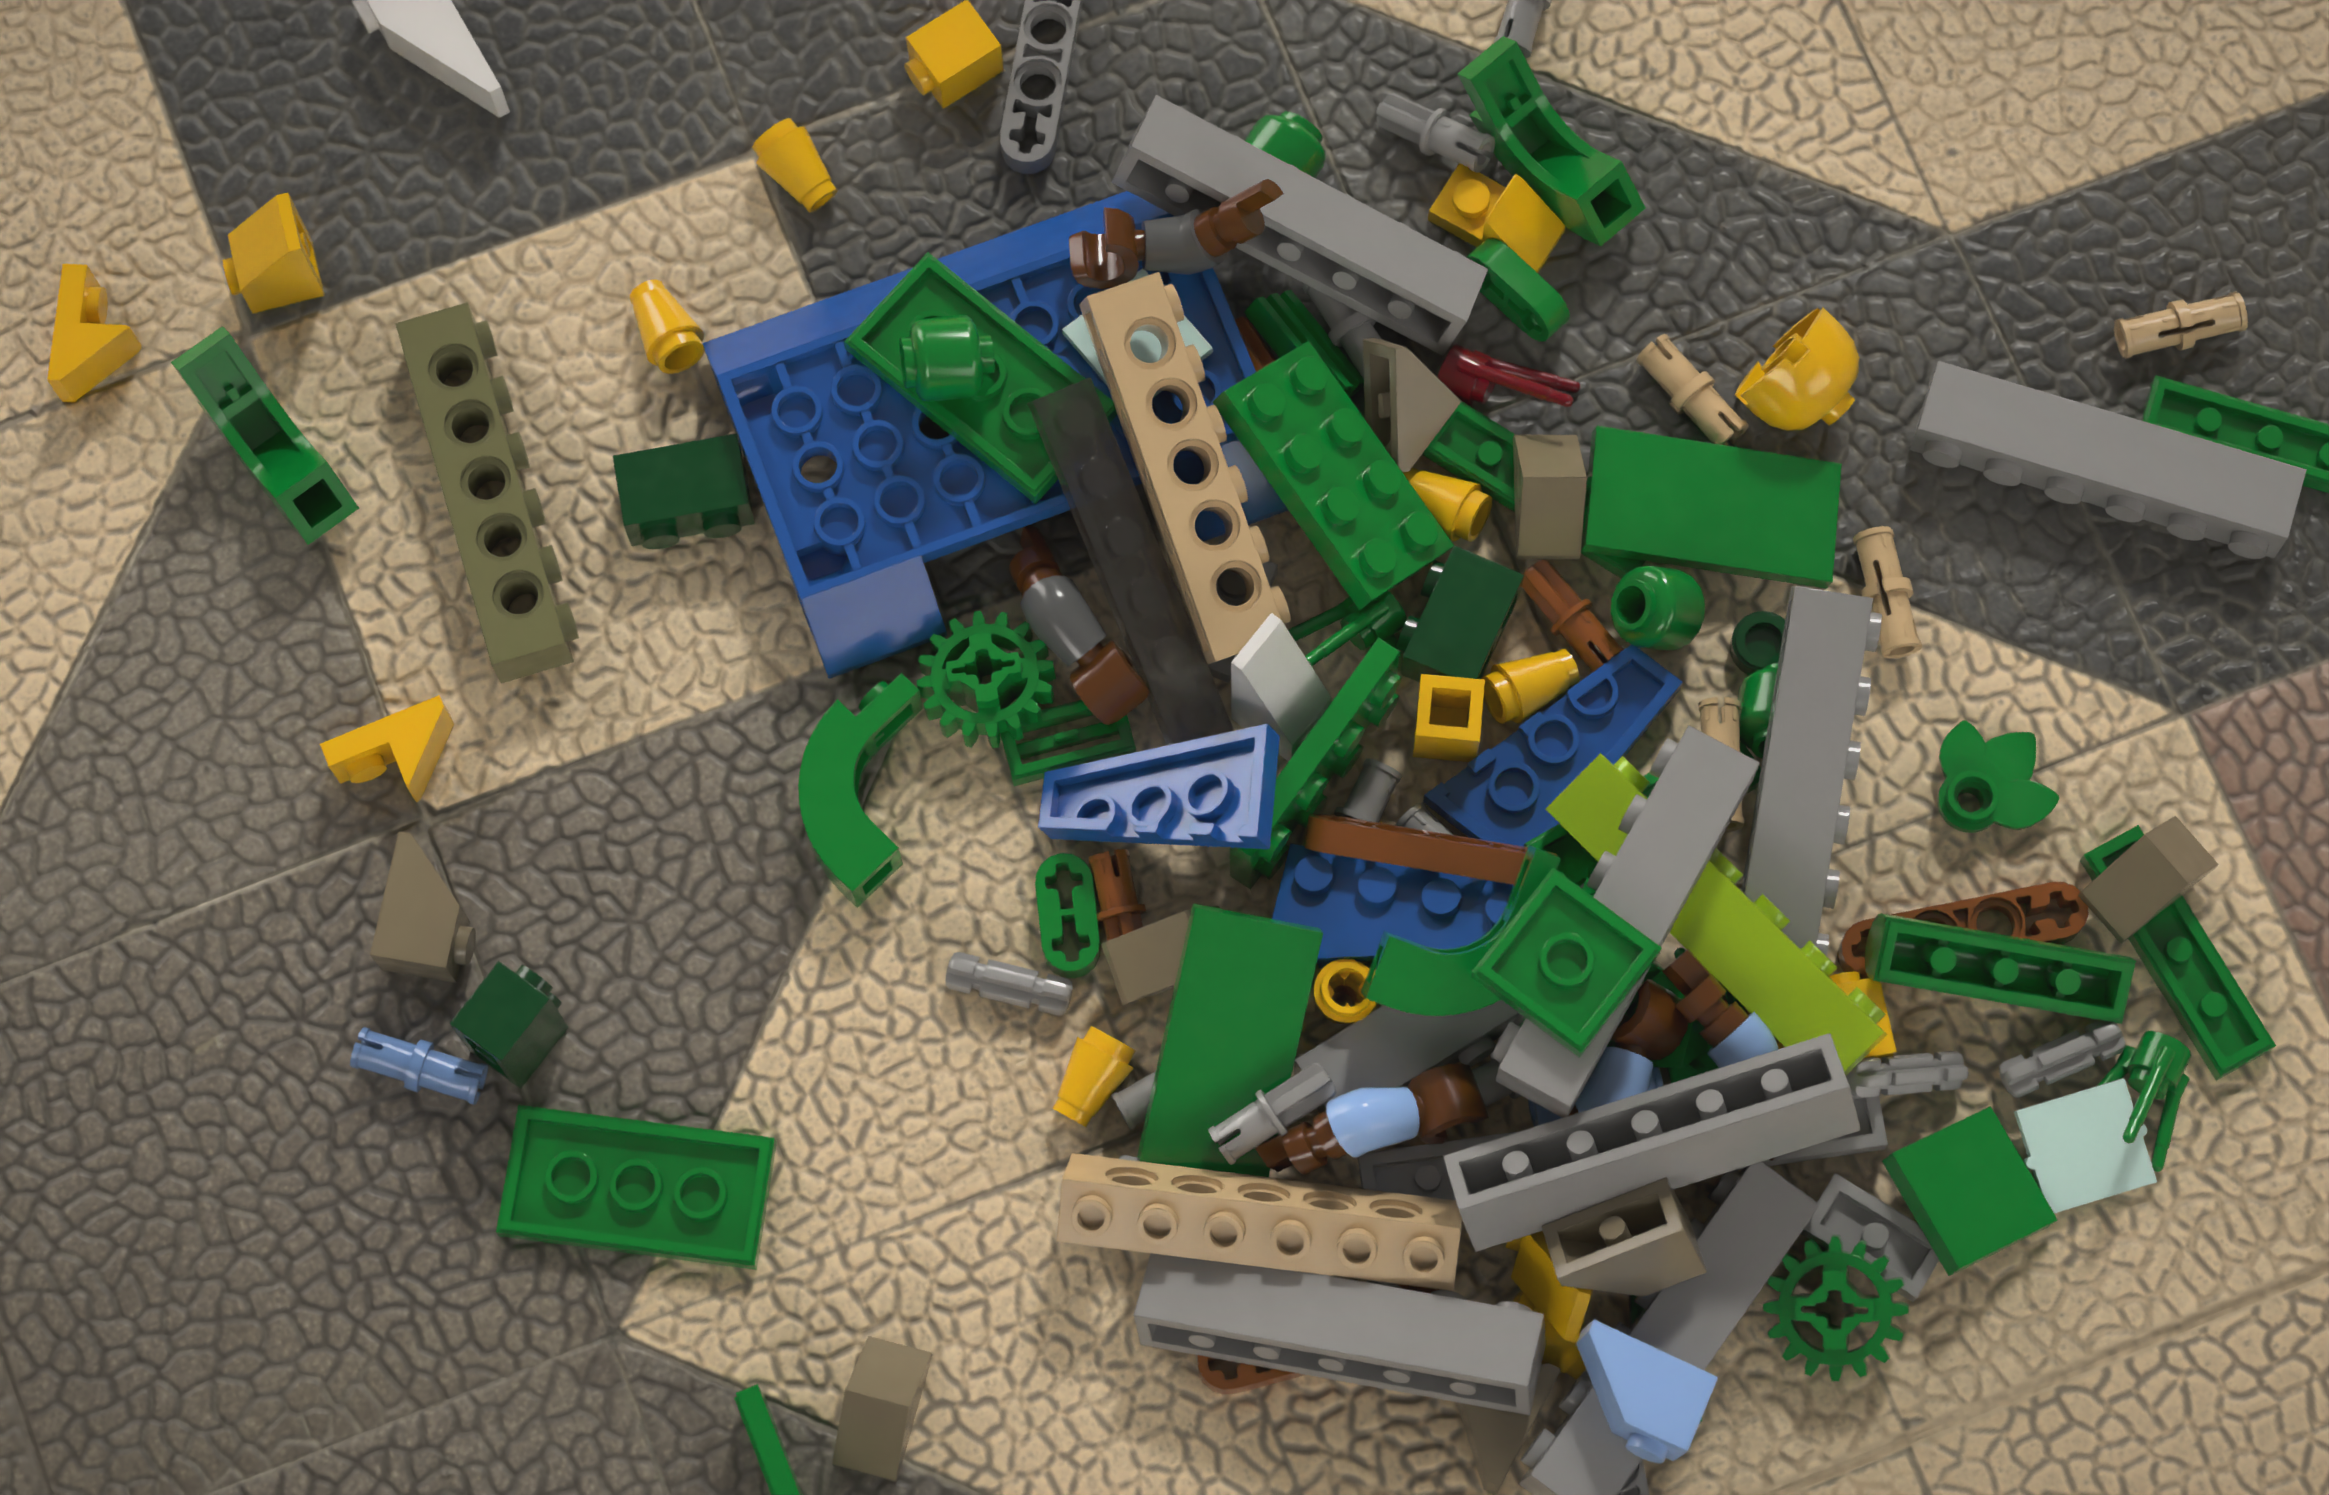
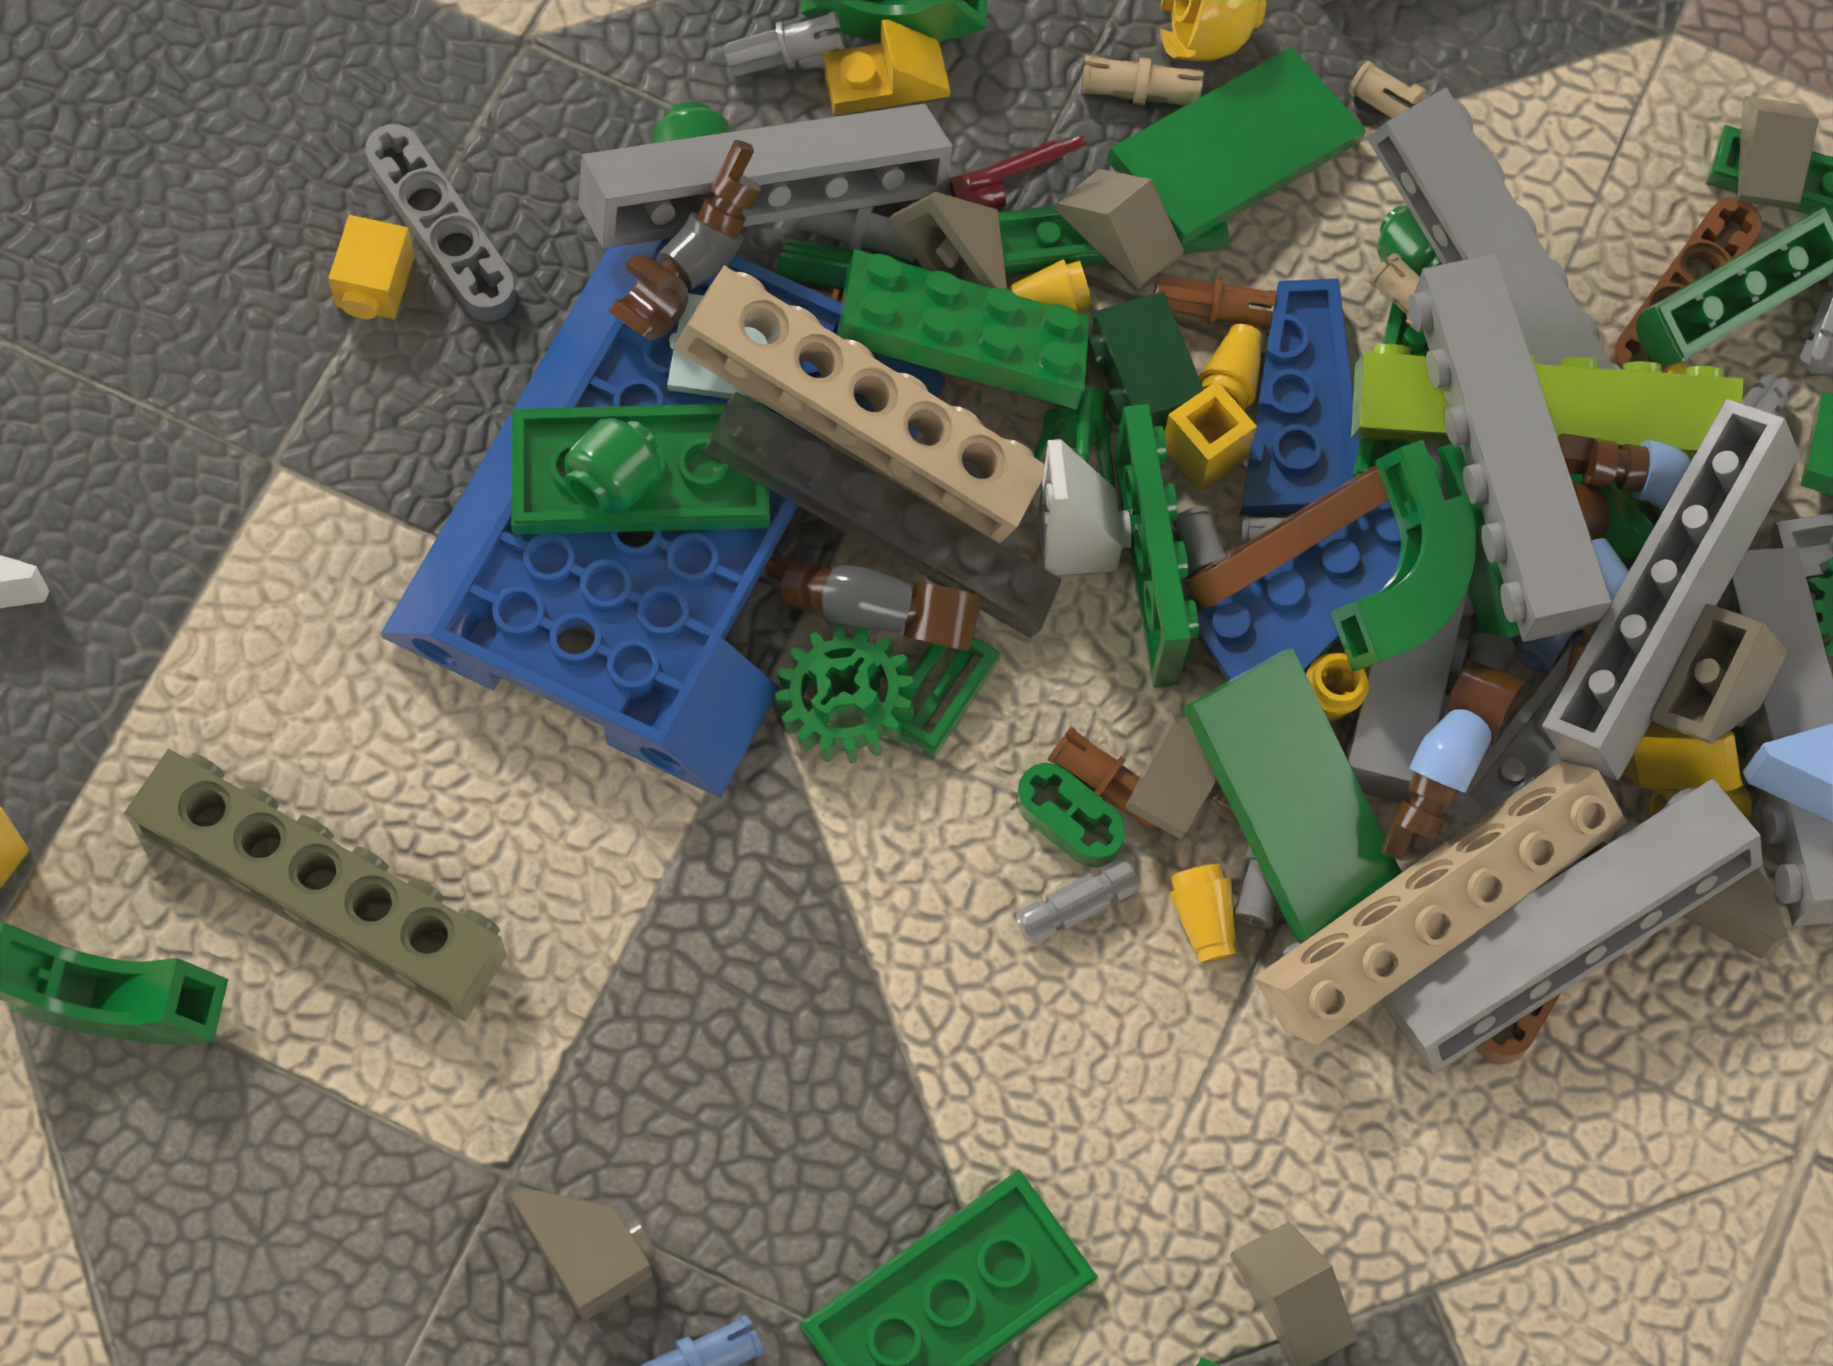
camera: 50 degrees left, 5 degrees down
(408, 737) = (436, 1125): yellow slope -> none
(511, 1022) = (744, 1258): dark green brick -> none
(666, 328) = (340, 644): yellow cone -> none
(683, 491) = (476, 752): dark green brick -> none
(794, 164) = (324, 444): yellow cone -> none
(841, 835) = (828, 892): green arch -> none
(1175, 794) = (1084, 644): blue wing -> none
(1273, 1112) = (1373, 814): light grey axle -> none
(1520, 291) = (959, 105): green beam -> none
(1566, 962) = (1510, 501): green tile -> none
(1657, 608) = (1273, 241): green head -> none
(1757, 641) = (1358, 213): dark green tile -> none
(1996, 775) = (1601, 172): green plate -> none

